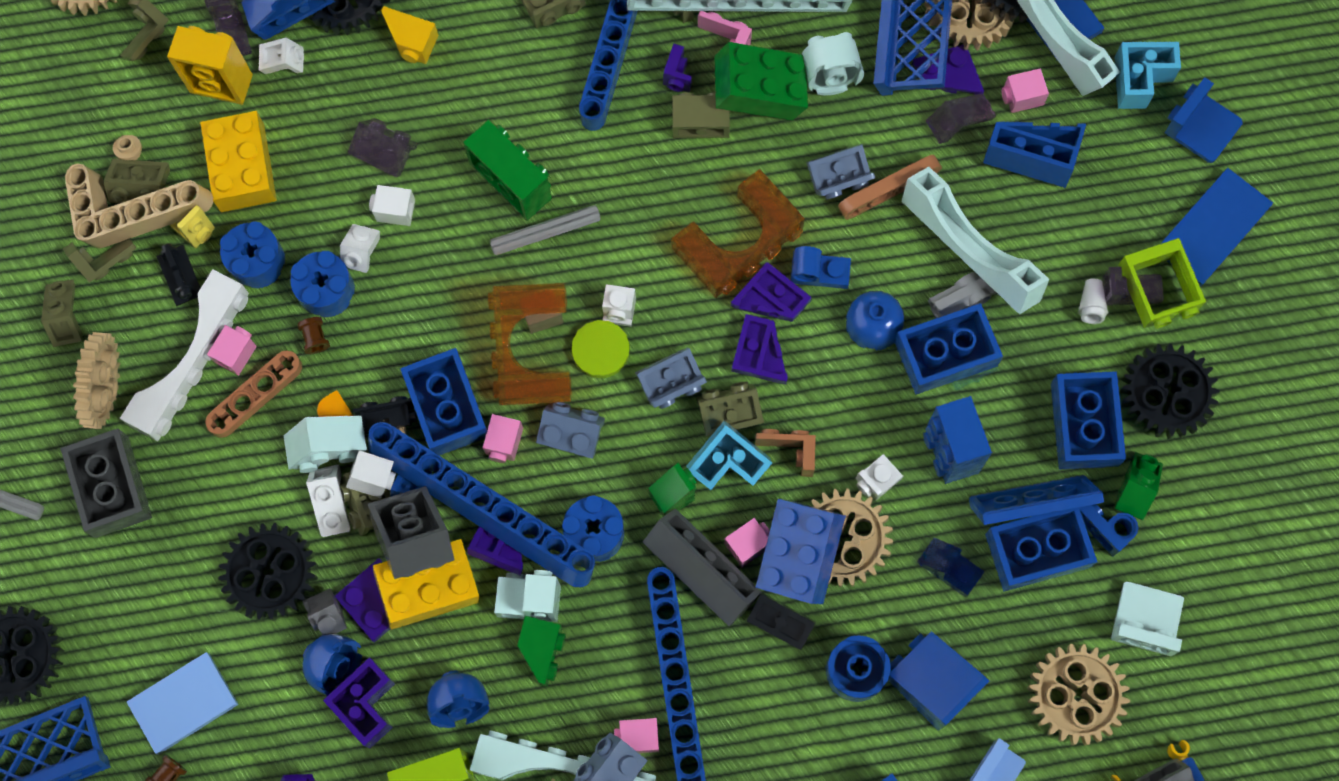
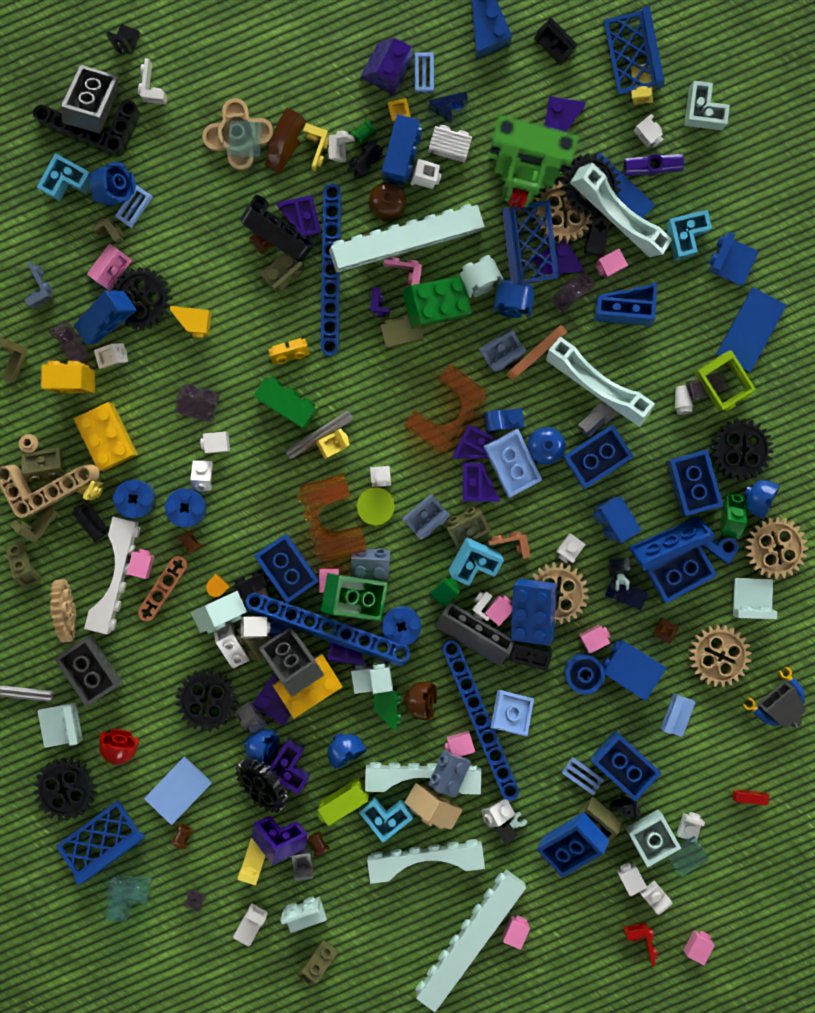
camera: 15 degrees left, 15 degrees up
(38, 557) = (60, 725): none -> light aqua bracket
(111, 609) = (118, 746): none -> red cylinder
(312, 716) = (261, 785): none -> black gear
(524, 109) = (297, 350): none -> yellow hinge
(532, 463) = (354, 597): none -> green brick
(561, 245) = (333, 443): none -> light yellow bracket
(595, 649) = (420, 700): none -> reddish brown cylinder
(723, 523) = (481, 600): none -> white bracket
(731, 705) = (512, 713): none -> light blue tile
(819, 331) = (512, 463): none -> light blue tile
(873, 104) = (514, 299): none -> blue brick
(887, 620) = (595, 638): none -> bright pink brick
(947, 524) = (620, 570): none -> pearl dark grey piece
(1000, 637) = (665, 630): none -> reddish brown tile
(1011, 54) = (597, 241): none -> black piece
(1186, 465) = (760, 497): none -> blue cylinder
(1225, 550) = (792, 543): none -> tan gear

